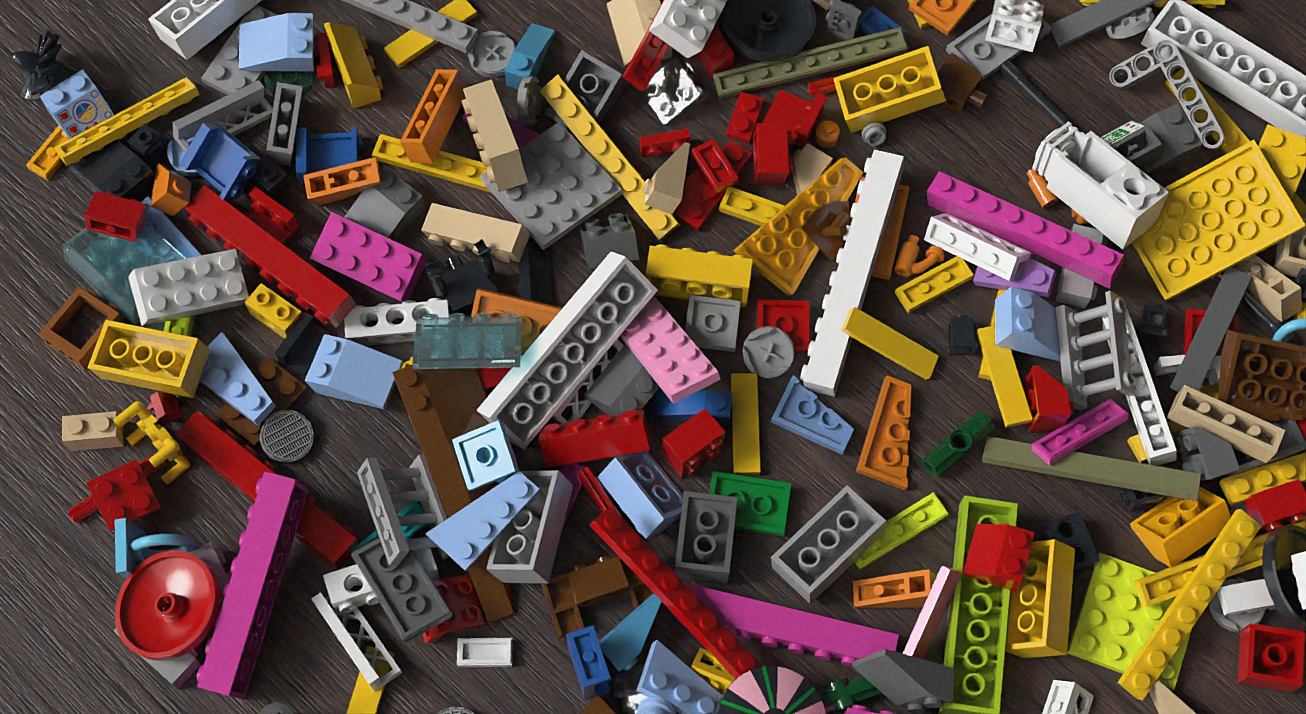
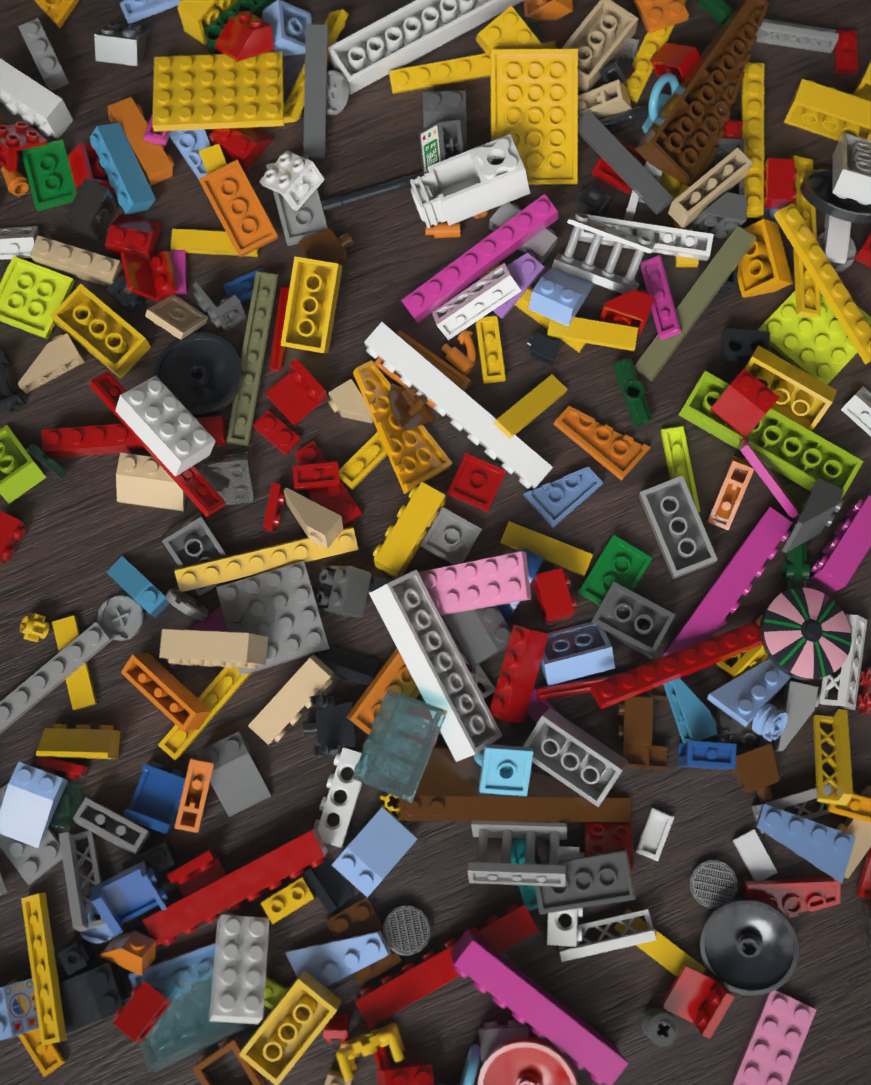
camera: 65 degrees left, 10 degrees up
(369, 257) = (274, 799): dark pink brick -> none
(481, 522) = (560, 799): light blue wing -> none
(768, 352) = (496, 504): light grey tile -> none
(771, 155) = (327, 425): red brick -> none
(827, 134) = (322, 372): orange piece -> none
(874, 134) = (340, 336): light grey plate -> none
(1179, 86) = (408, 83): light grey beam -> none

